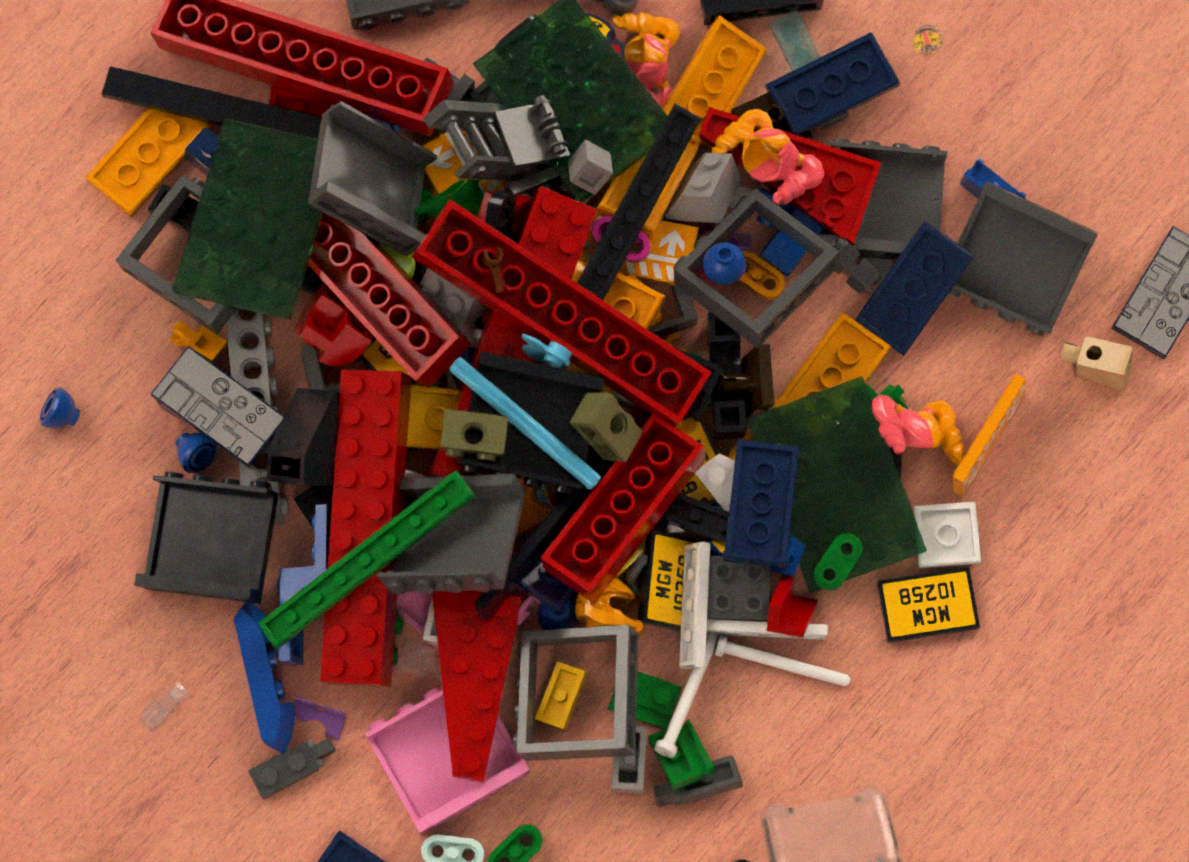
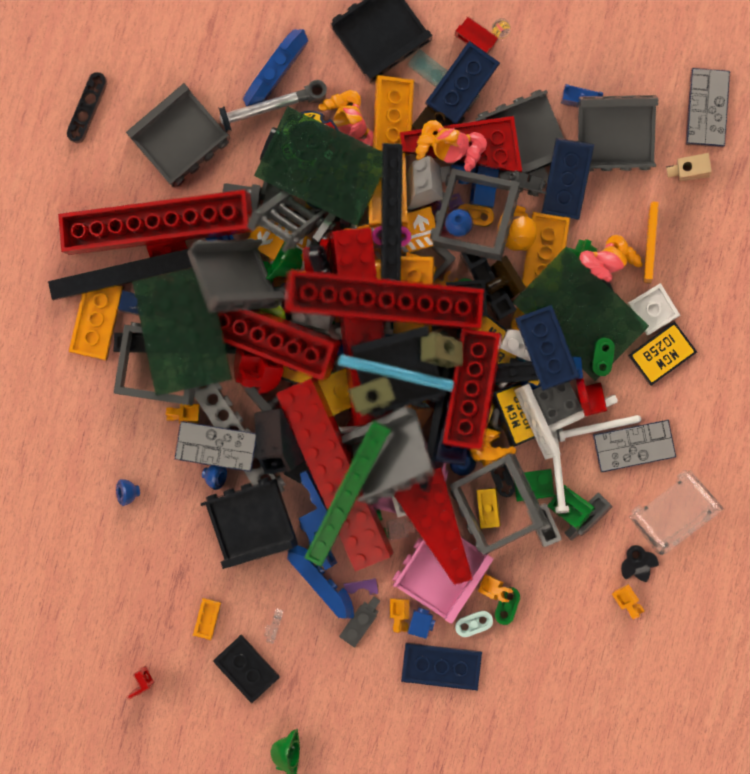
camera: 25 degrees left, 10 degrees up
(73, 647) = (207, 618): none -> light orange plate
(90, 749) = (246, 668): none -> black tile
(353, 780) = (400, 612): none -> light orange plate
(376, 811) = (421, 623): none -> blue brick
(495, 268) = (336, 296): reddish brown hand -> none
(508, 815) = (493, 588): none -> light orange plate
(532, 133) = (310, 201): hinge -> none
(553, 354) = (392, 326): medium azure plate -> none
(590, 167) = (354, 204): light grey panel -> none
(595, 666) = (498, 481): none -> black beam
(809, 325) = (522, 231): none -> light orange helmet
(820, 716) = (634, 446): none -> light grey tile
(887, 31) = (475, 34): none -> red panel

